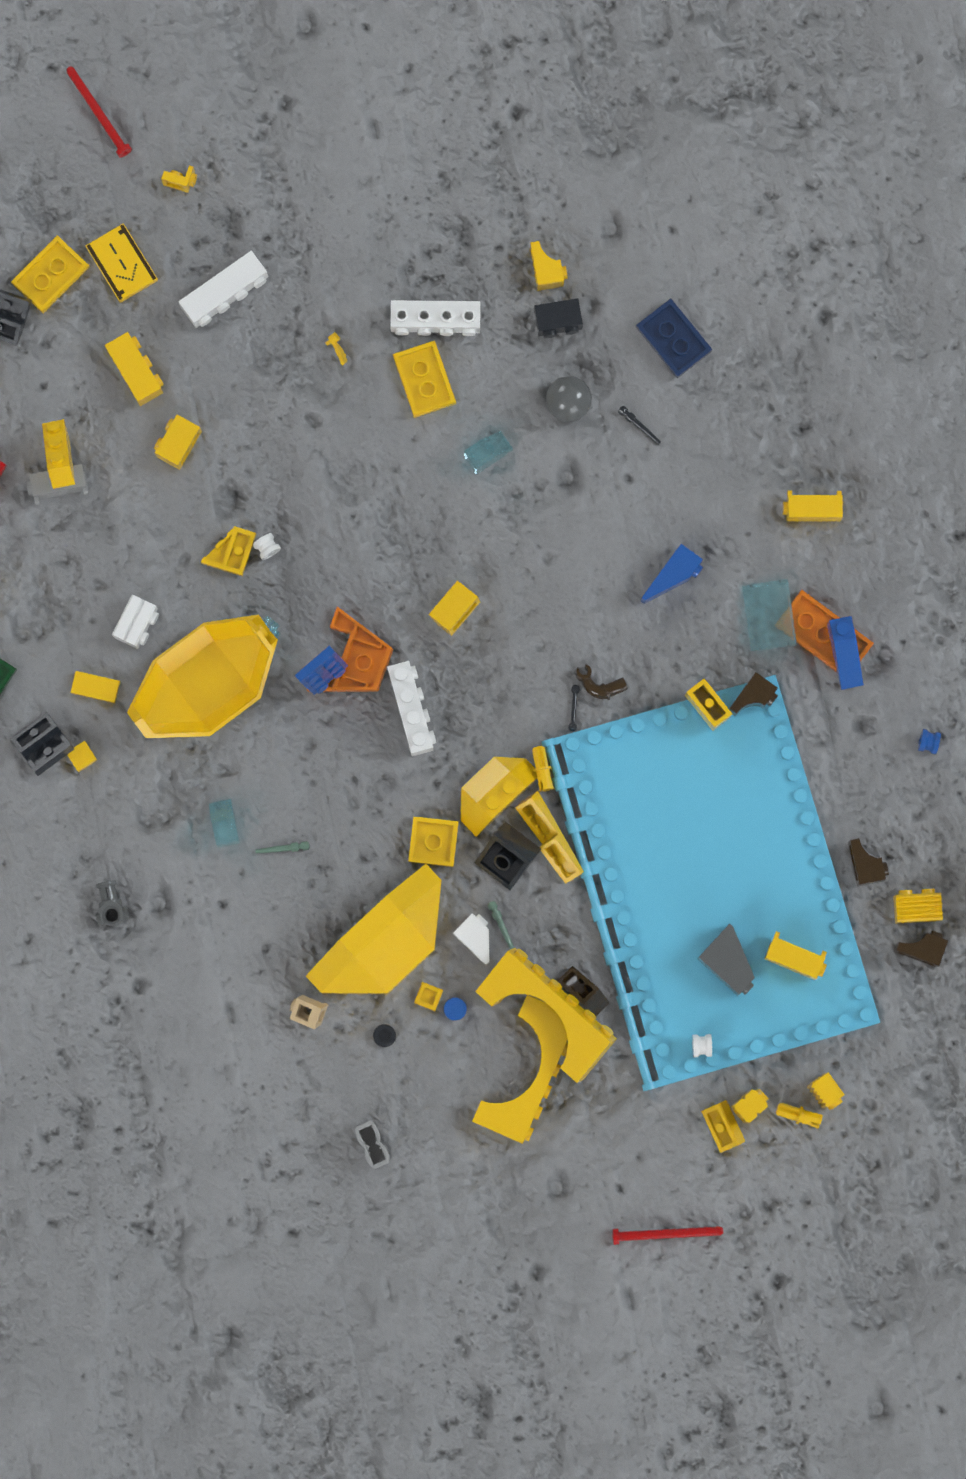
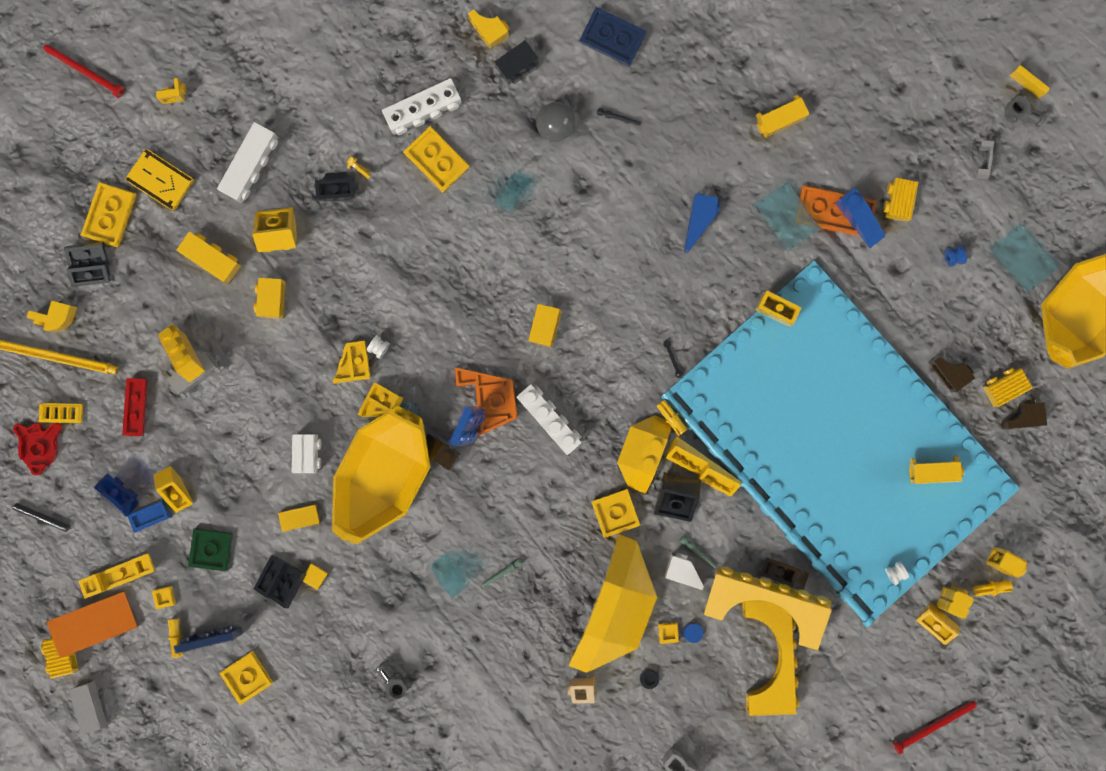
camera: 25 degrees left, 5 degrees up
(218, 372) = (275, 230): none -> yellow slope
(239, 603) = (379, 401): none -> yellow wing
(279, 689) = (441, 453): none -> dark brown slope
(302, 358) = (335, 187): none -> black slope
(601, 691) = (689, 335): dark brown piece -> none
(728, 962) = (885, 498): dark grey slope -> none
(756, 693) = (807, 281): dark brown arch -> none
(899, 655) = (901, 199): none -> yellow brick

